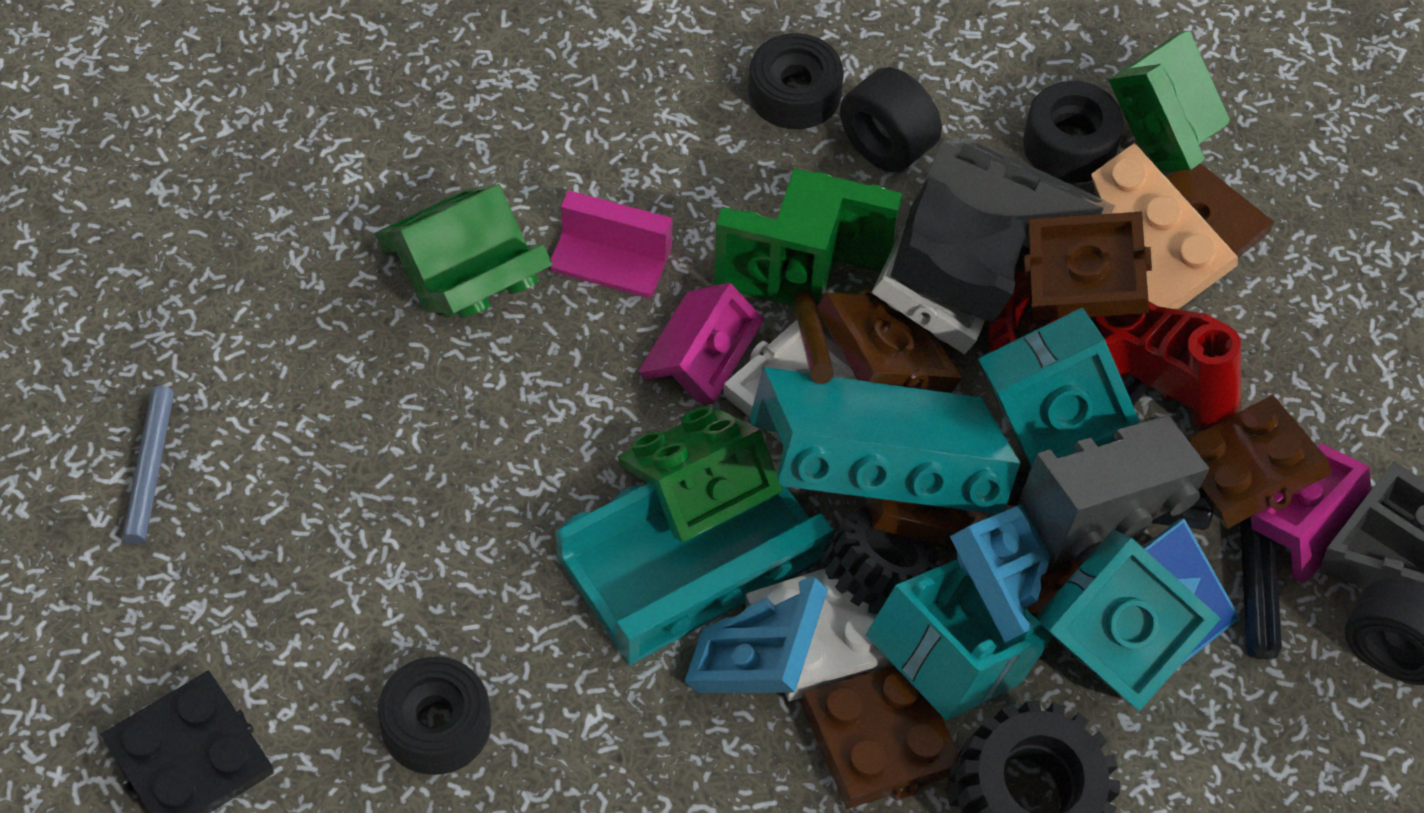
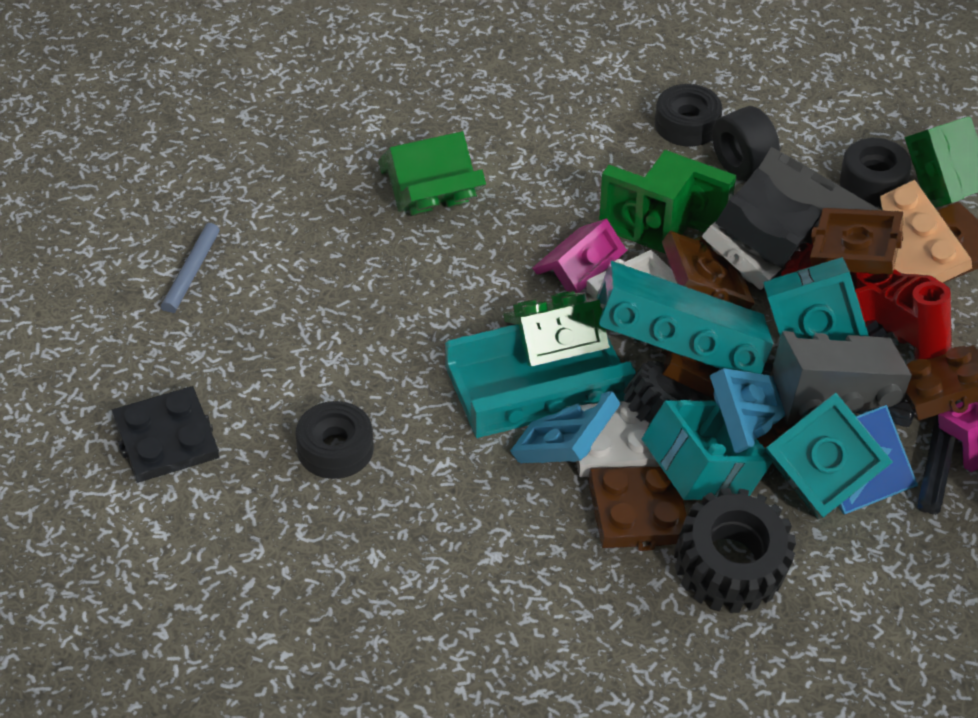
camera: 15 degrees right, 10 degrees down
(612, 244) = (535, 189): dark pink panel -> none
(813, 337) = (652, 256): reddish brown bar -> none

